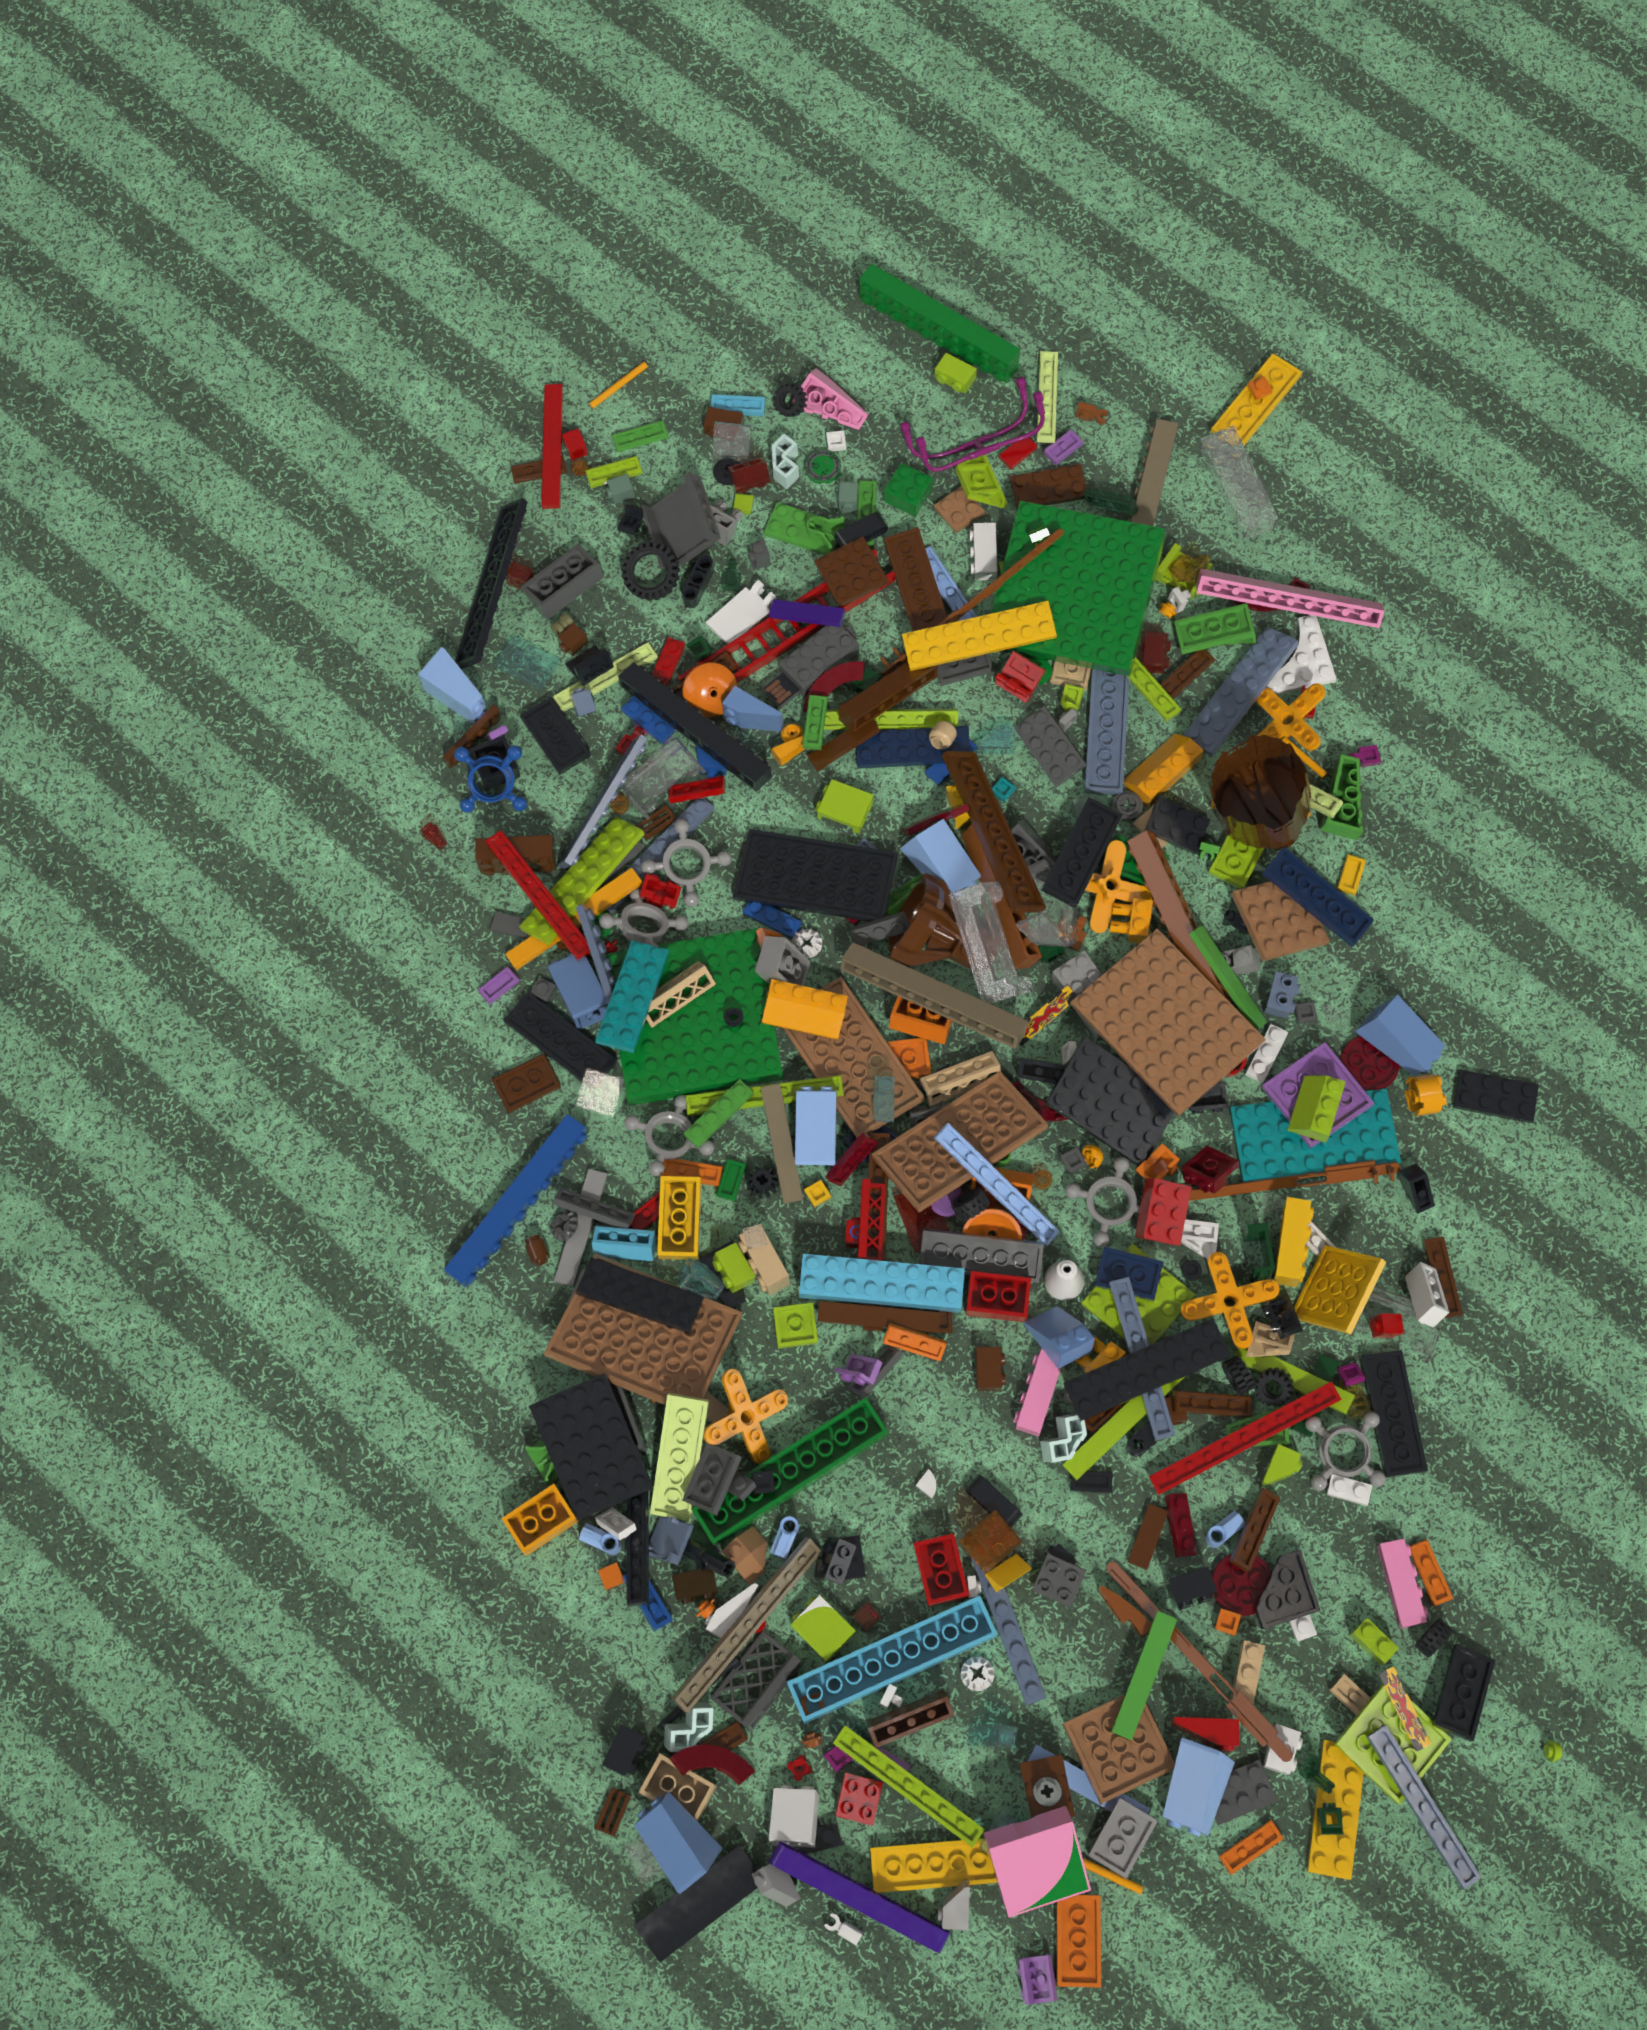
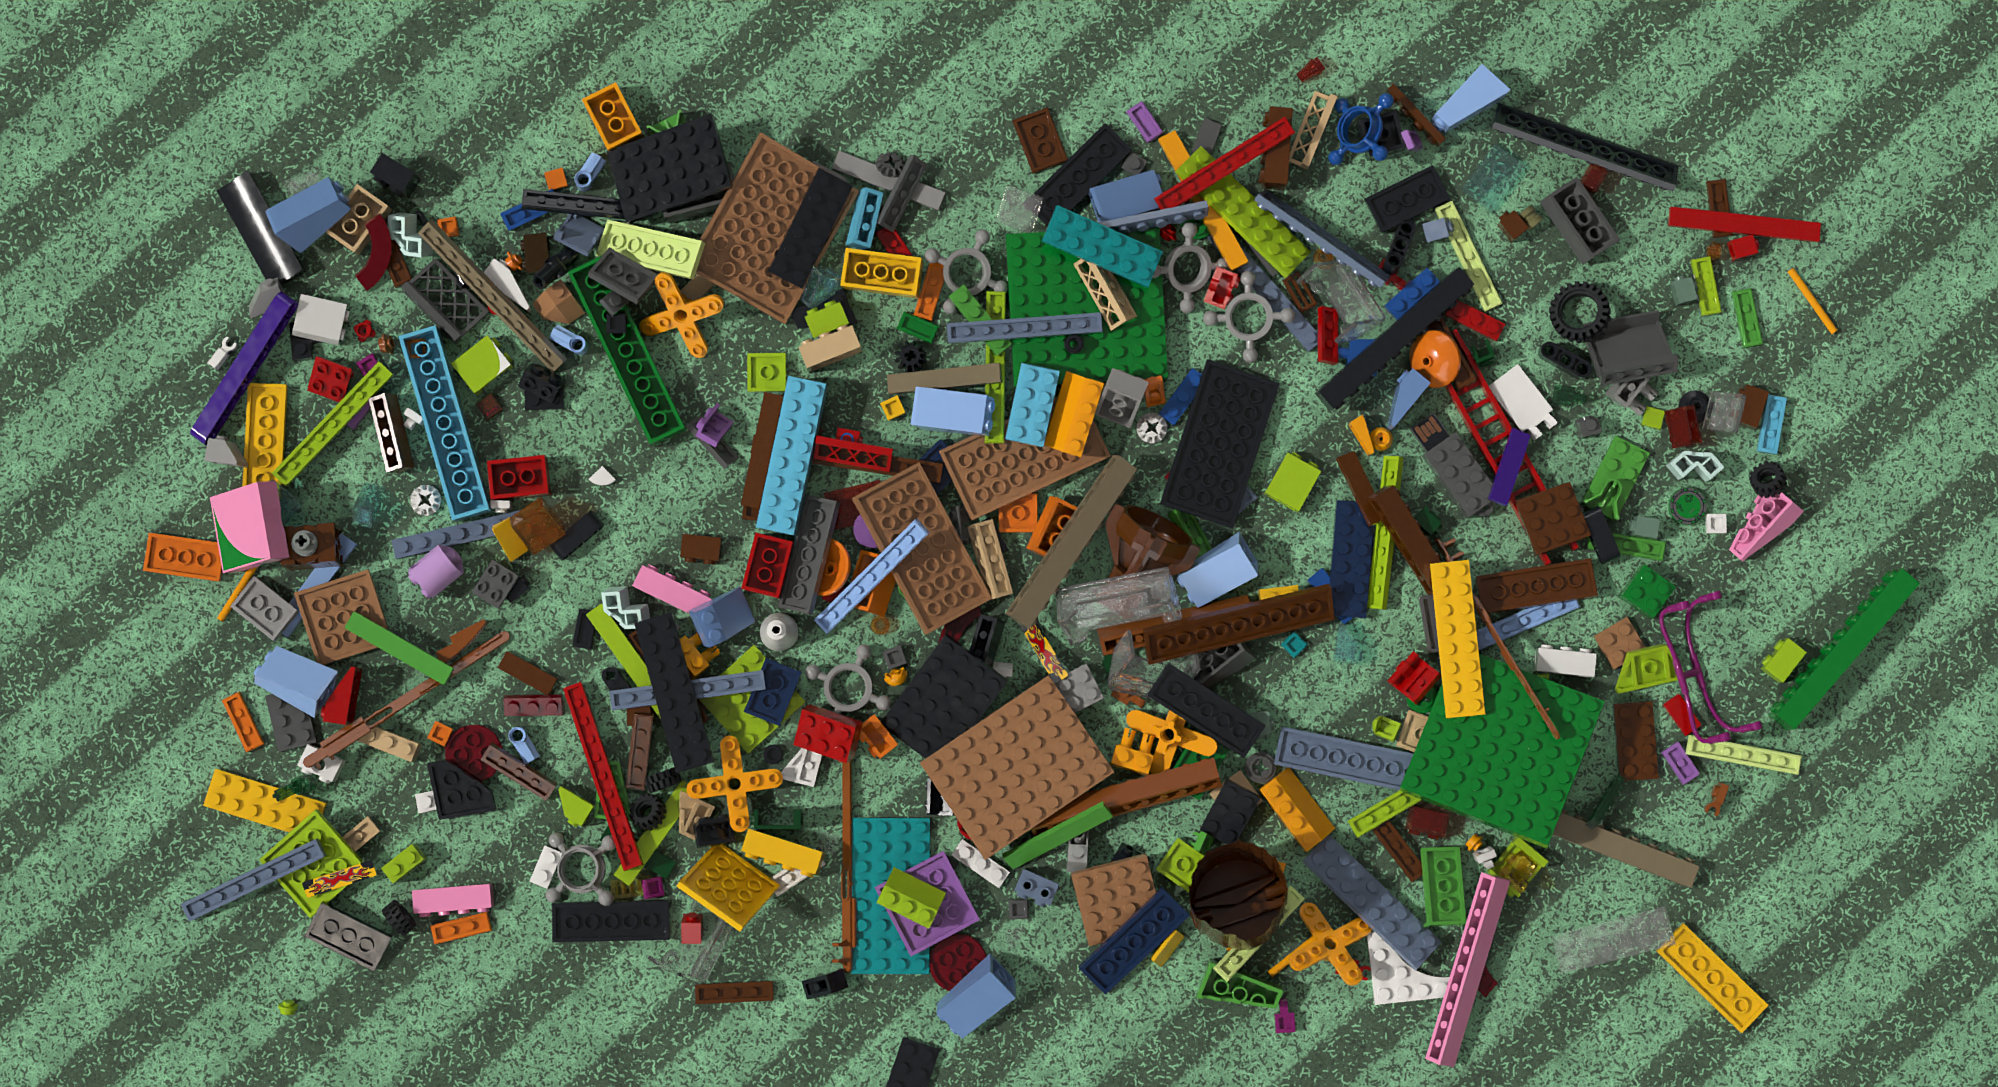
camera: 90 degrees right, 15 degrees up
(492, 820) = (1318, 132): none -> tan fence
(516, 1200) = (921, 121): blue brick -> none
(537, 1250) = (869, 137): reddish brown brick -> none
(590, 664) = (1481, 240): black bracket -> none
(610, 734) = (1402, 239): none -> black beam
(616, 1523) = (599, 186): white plate -> none
(620, 1794) = (363, 169): reddish brown tile -> none
(632, 520) = (1644, 298): black bracket -> none
(672, 1686) = (449, 226): none -> orange tile
(723, 1066) = (1024, 328): none -> sand blue plate
(754, 1236) = (847, 339): clear tile -> none
(799, 1049) = (1032, 404): none -> medium azure brick
(815, 722) = (1385, 461): bright green tile -> none
(834, 677) = (1430, 482): dark red tile -> none
(851, 1159) = (919, 443): dark red plate -> none
(880, 928) = (1152, 500): dark grey plate -> none
(884, 1098) = (972, 480): clear light blue slope -> none
(914, 1342) = (734, 481): orange tile -> none
(942, 735) = (1353, 588): tan head -> none
(946, 814) = (1265, 579): dark red tile -> none
(970, 1204) = (858, 550): black tyre -> none
(1037, 1979) = (157, 515): medium lavender bracket -> none
(1039, 534) = (1559, 713): plate -> none
(1050, 746) = (1333, 698): dark grey plate -> none
(1053, 1646) = (436, 570): none -> lavender cylinder
(1067, 719) = (1361, 719): light grey plate -> none
(1190, 1588) = (471, 703): black brick -> none
(1209, 1169) = (866, 786): dark red plate -> none
(1259, 388) = (1725, 983): orange plate -> none
(1328, 875) = (1166, 948): none -> yellow slope
(1329, 1829) = (261, 793): dark green window -> none
(1351, 874) = (1158, 981): yellow tile -> none
(1425, 1094) = (915, 1008): light orange brick -> none
(1426, 1294) = (714, 970): white brick -> none

